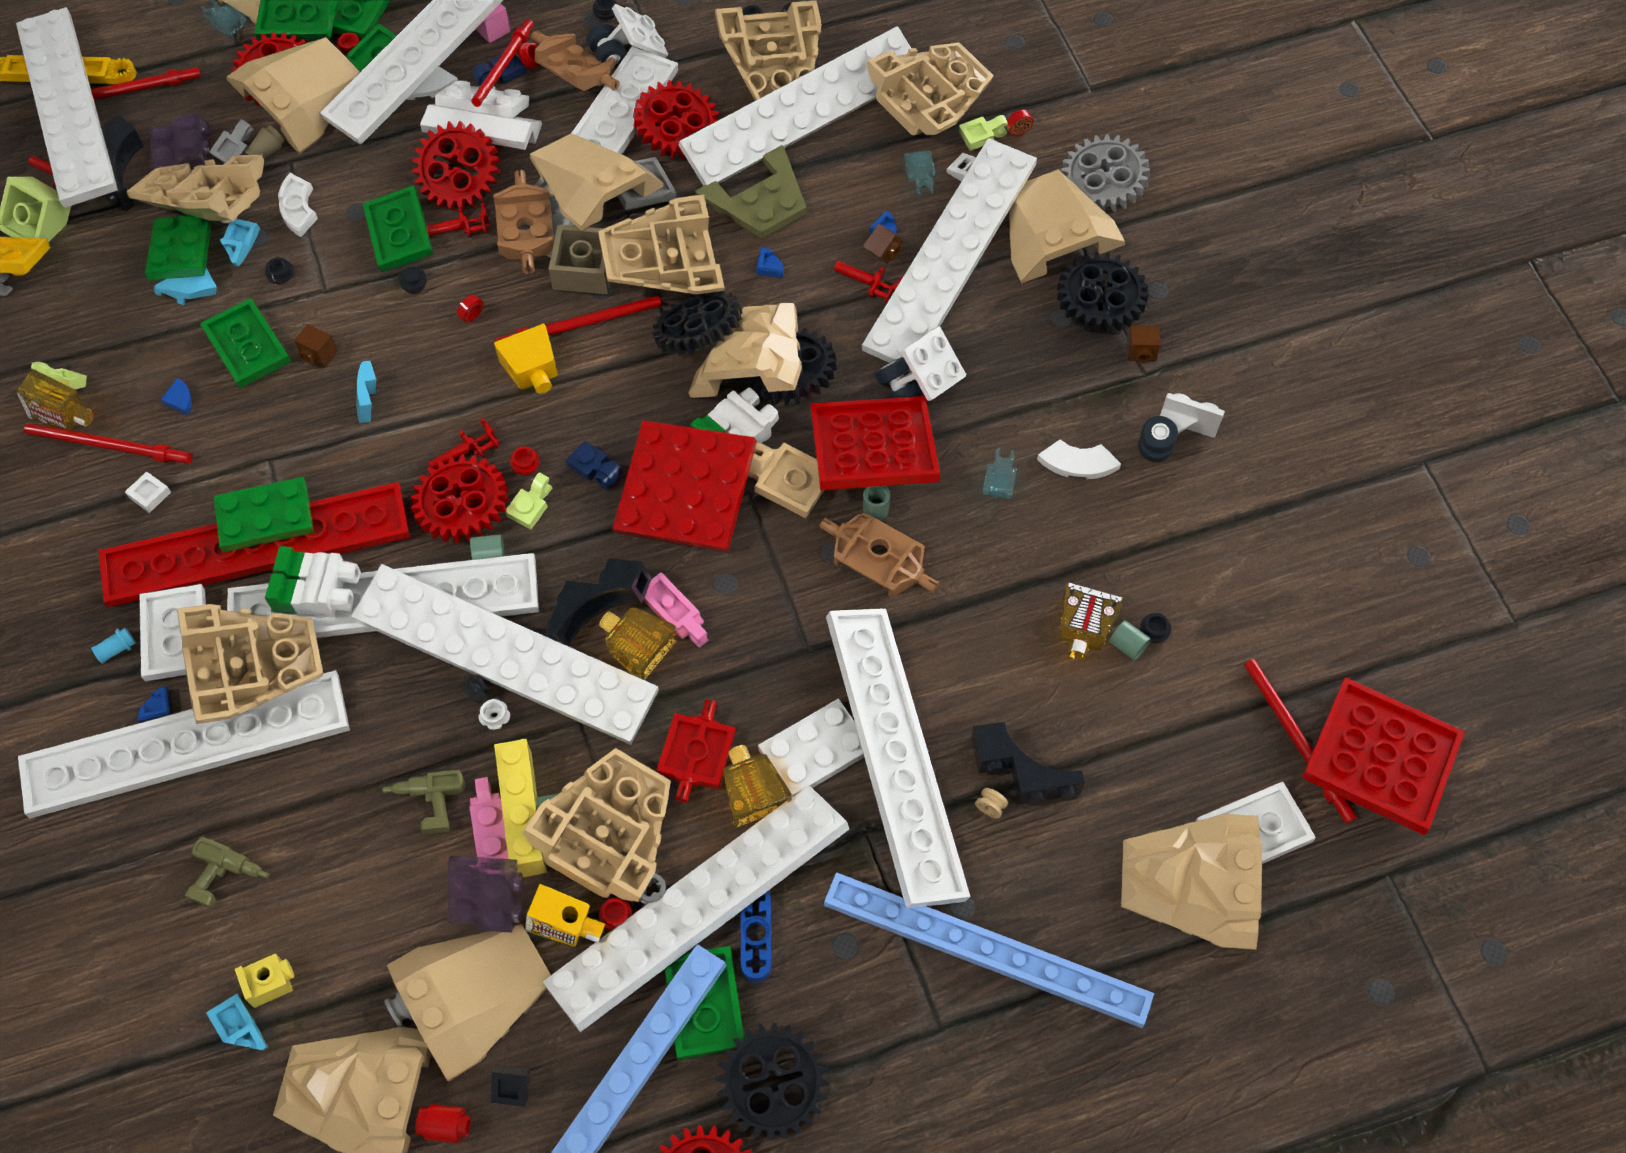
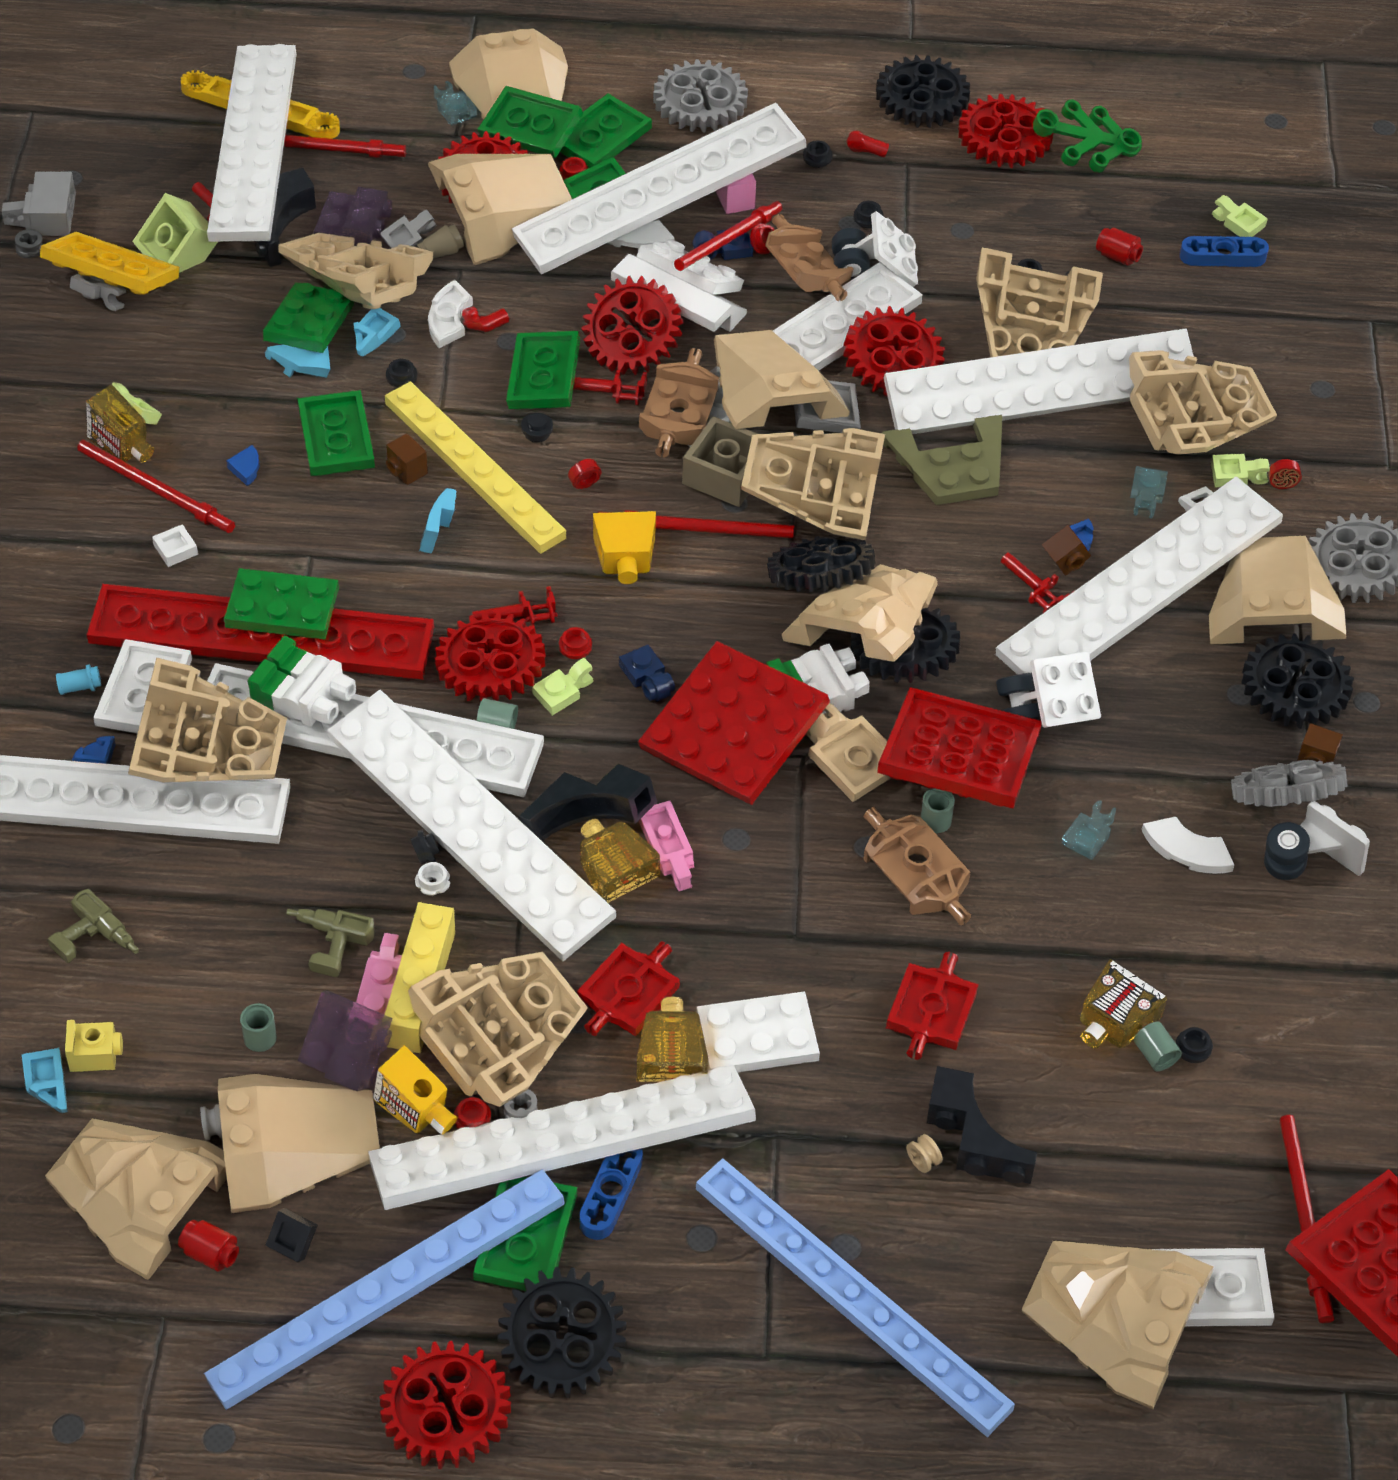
camera: 20 degrees right, 10 degrees down
(328, 203) = (484, 323): none -> red arm
(375, 332) = (476, 467): none -> light yellow plate
(400, 895) = (255, 1016): none -> sand green beam
(769, 264) = (931, 533): blue tile -> none
(897, 759) = (840, 1071): white plate -> none
(943, 672) = (932, 1006): none -> red plate
(1139, 383) = (1307, 779): none -> light grey gear

